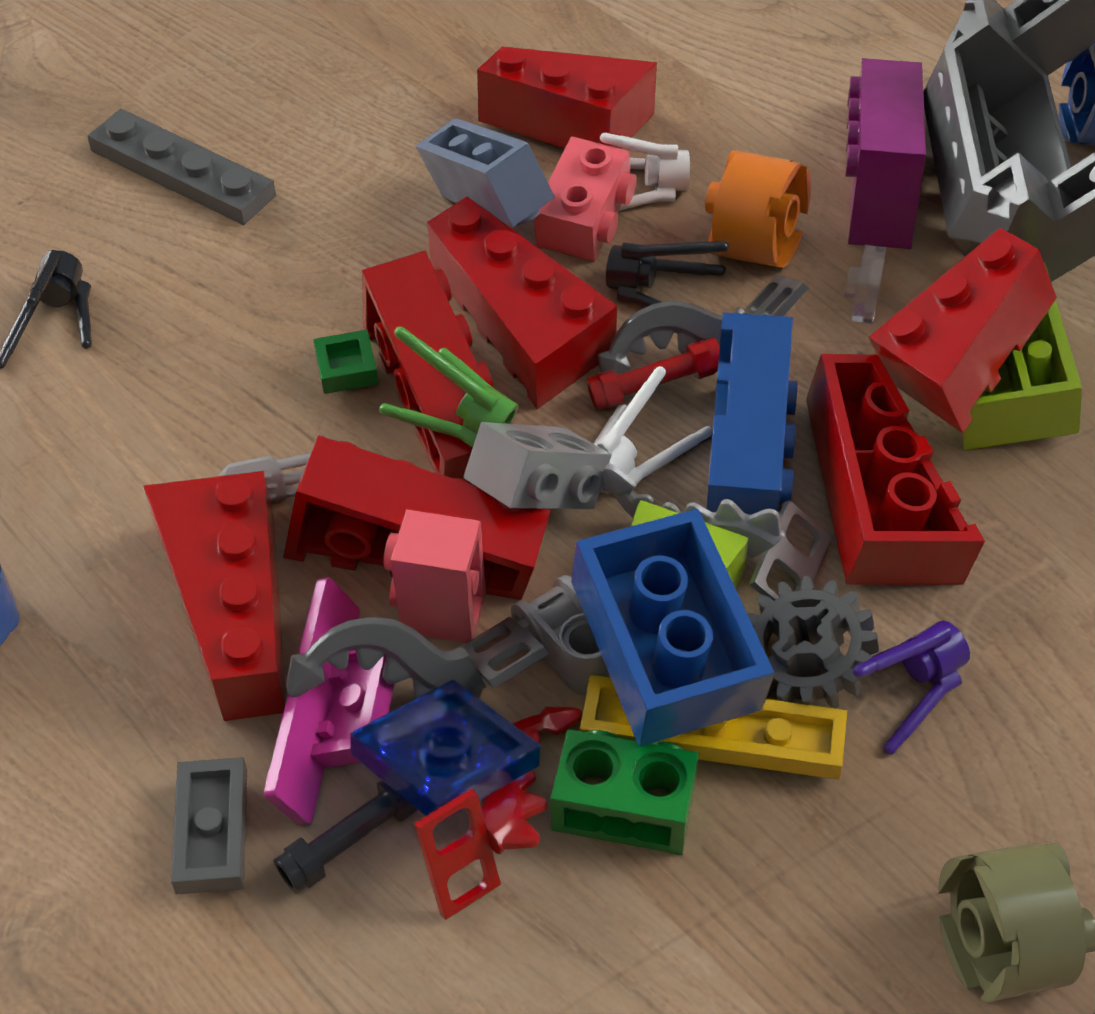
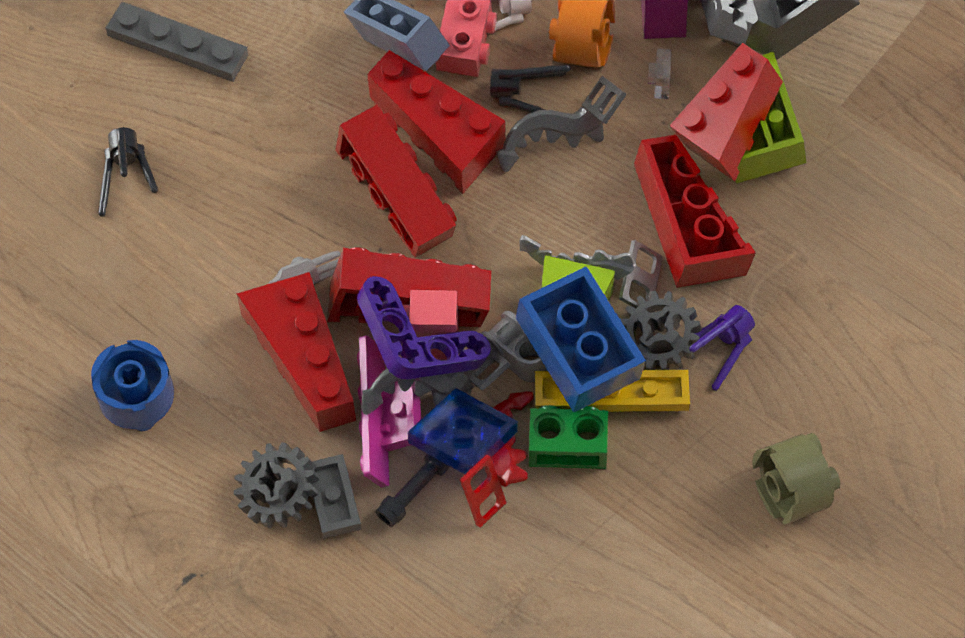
camera: 10 degrees left, 10 degrees up
(119, 791) = (264, 477): none -> dark grey gear
(345, 361) = (333, 180): green plate -> none
(478, 405) = (439, 209): bright green plant -> none
(486, 614) = (415, 348): none -> dark purple beam
(536, 466) = (478, 242): light grey brick -> none
(608, 389) = (564, 147): red bar -> none
(623, 450) = (521, 222): white plant -> none
(751, 414) = (603, 188): blue wedge -> none

